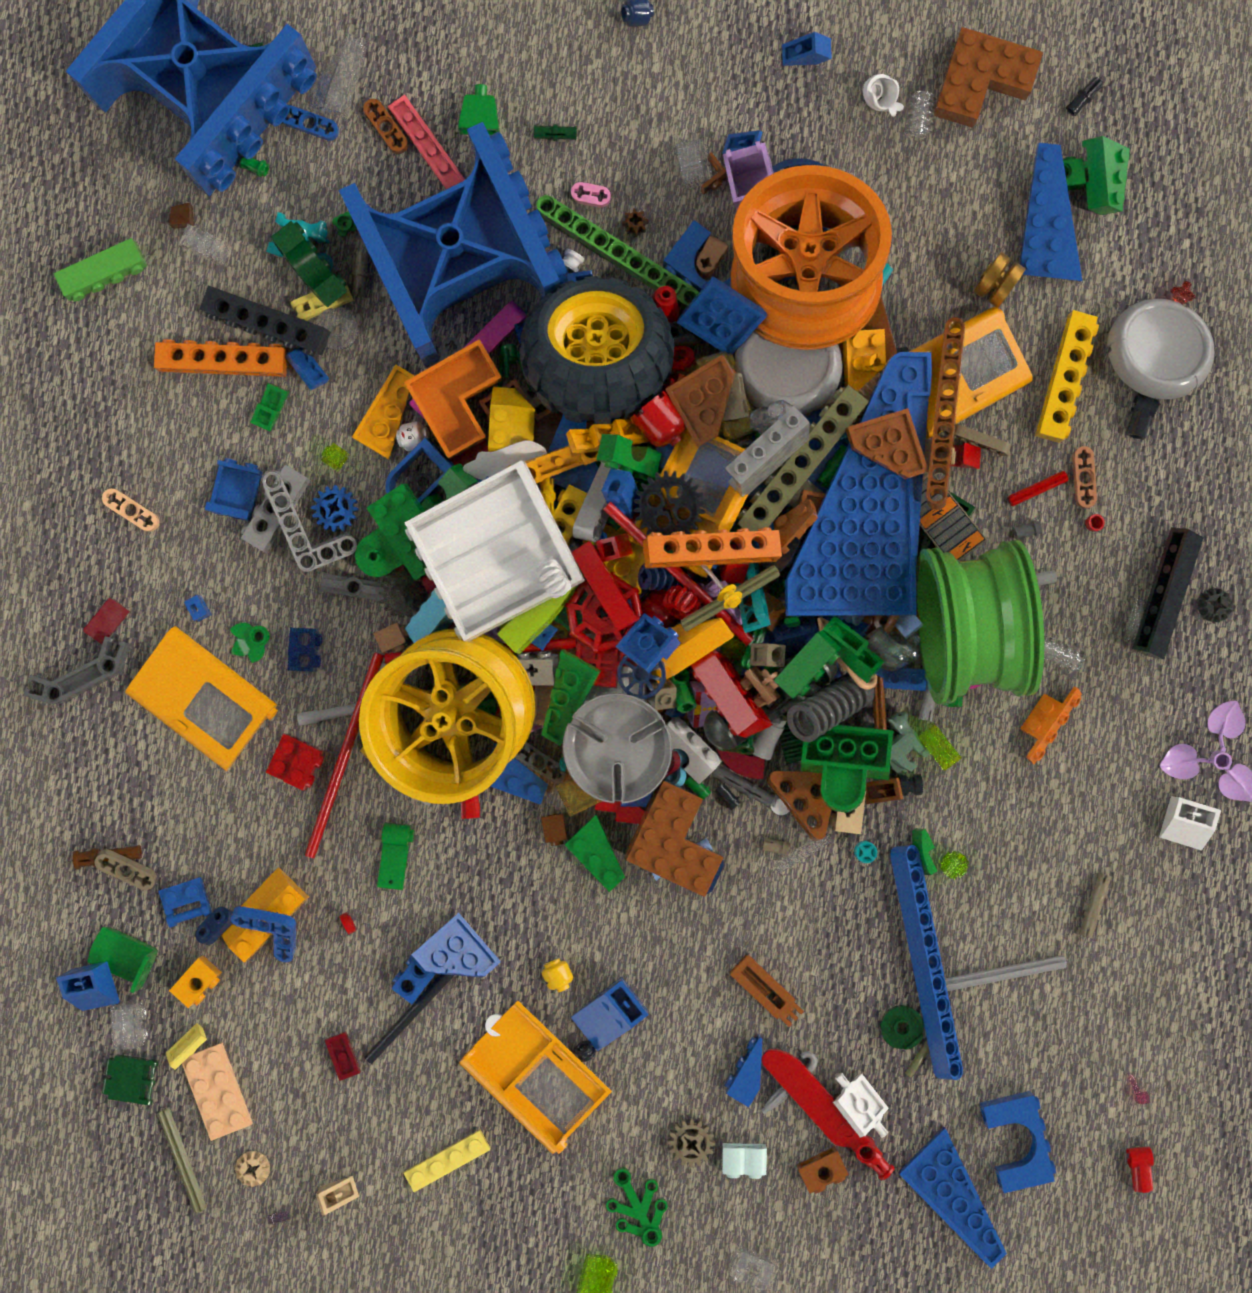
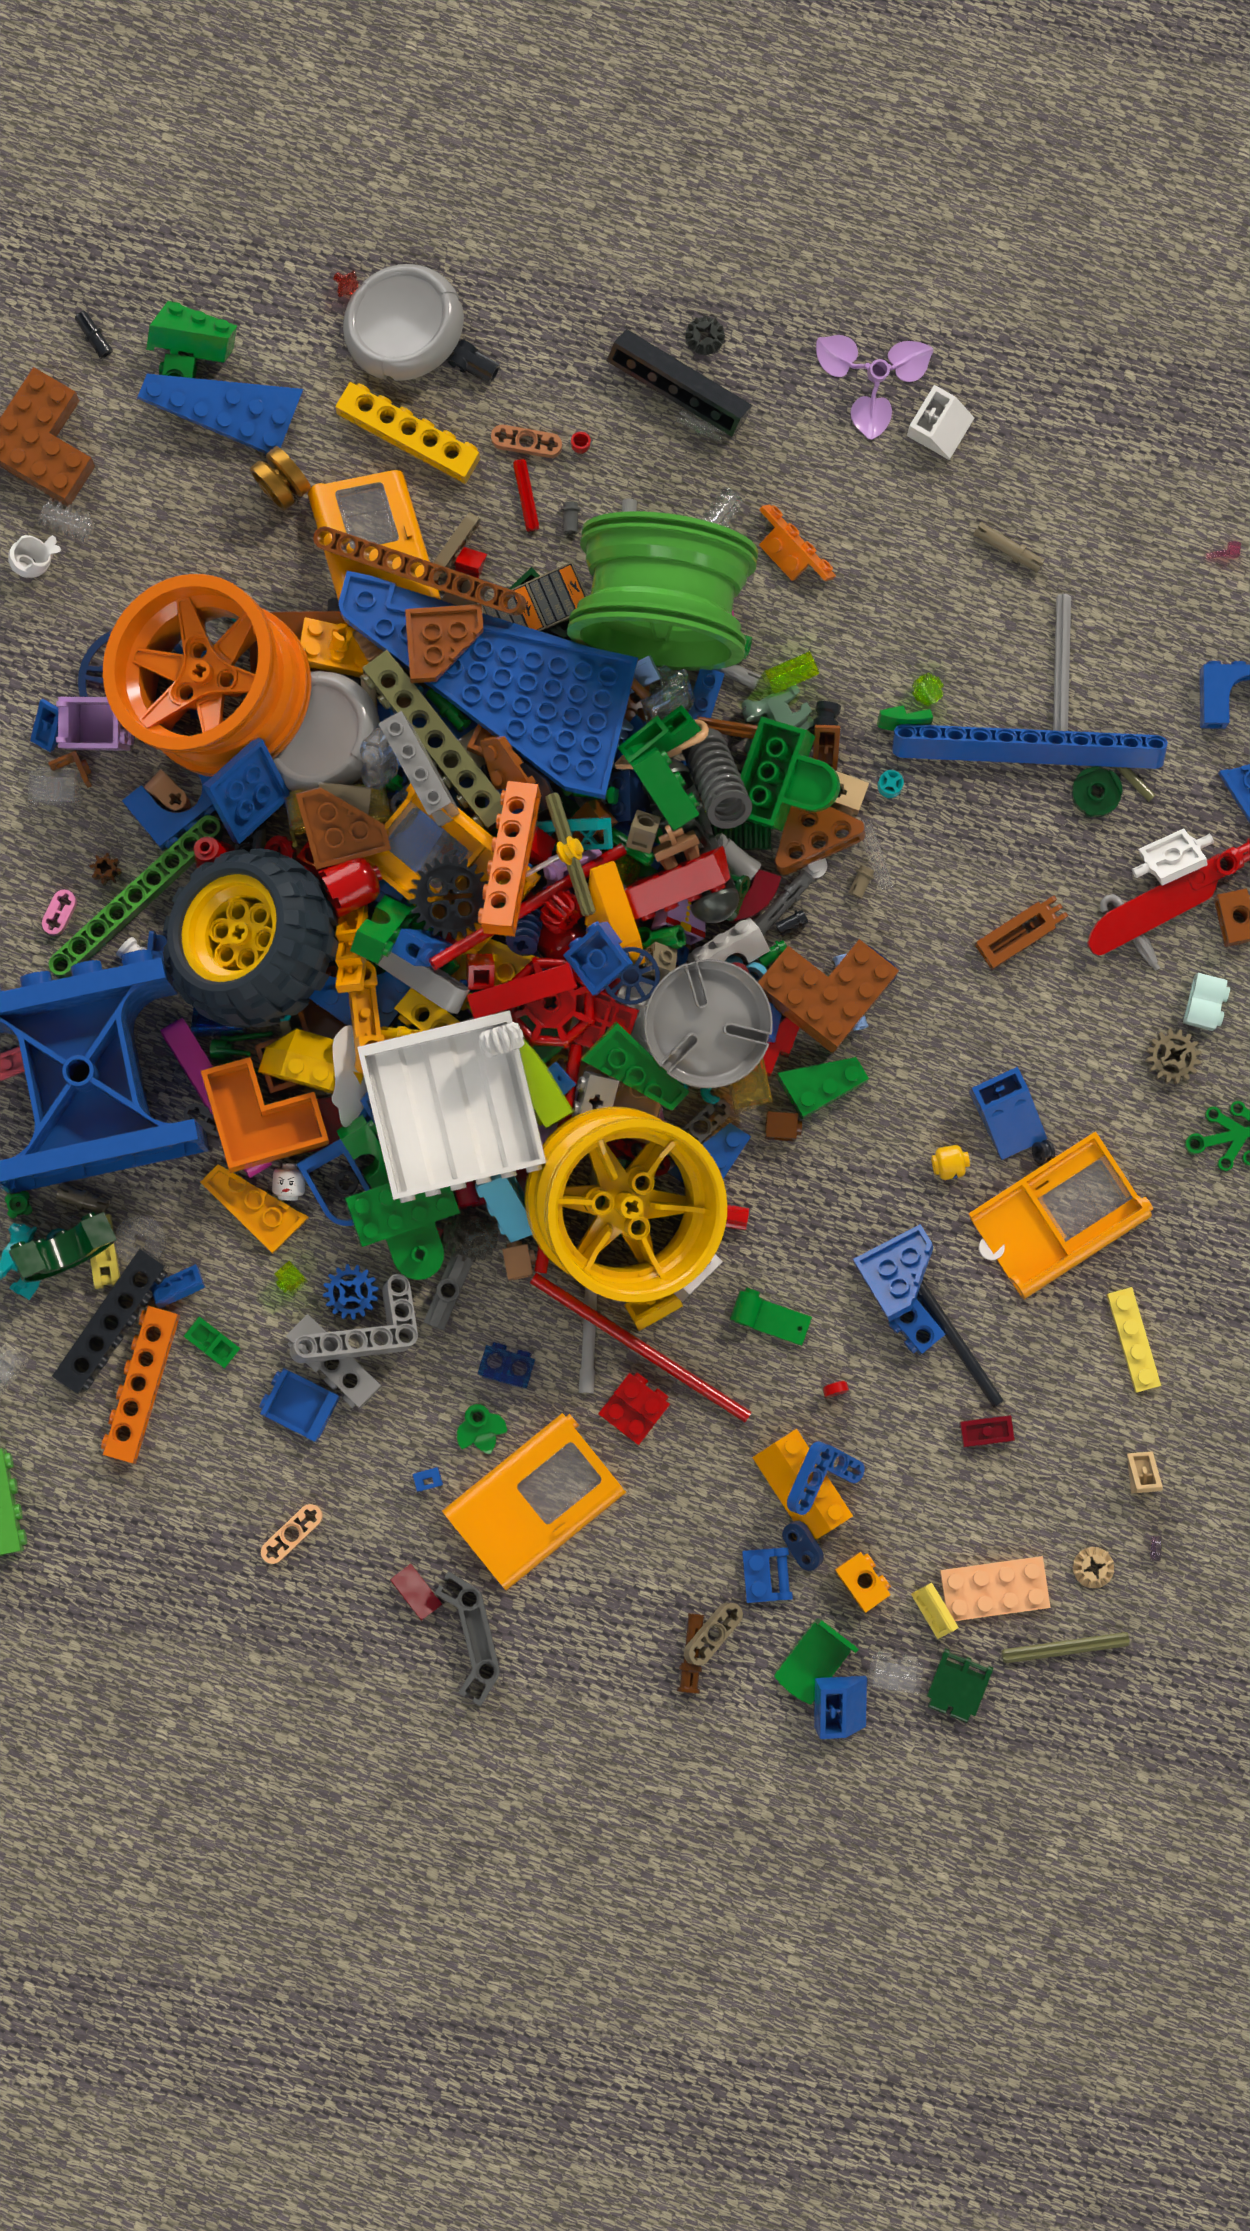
camera: 80 degrees left, 5 degrees down
(746, 1081) = (1113, 975): blue slope -> none

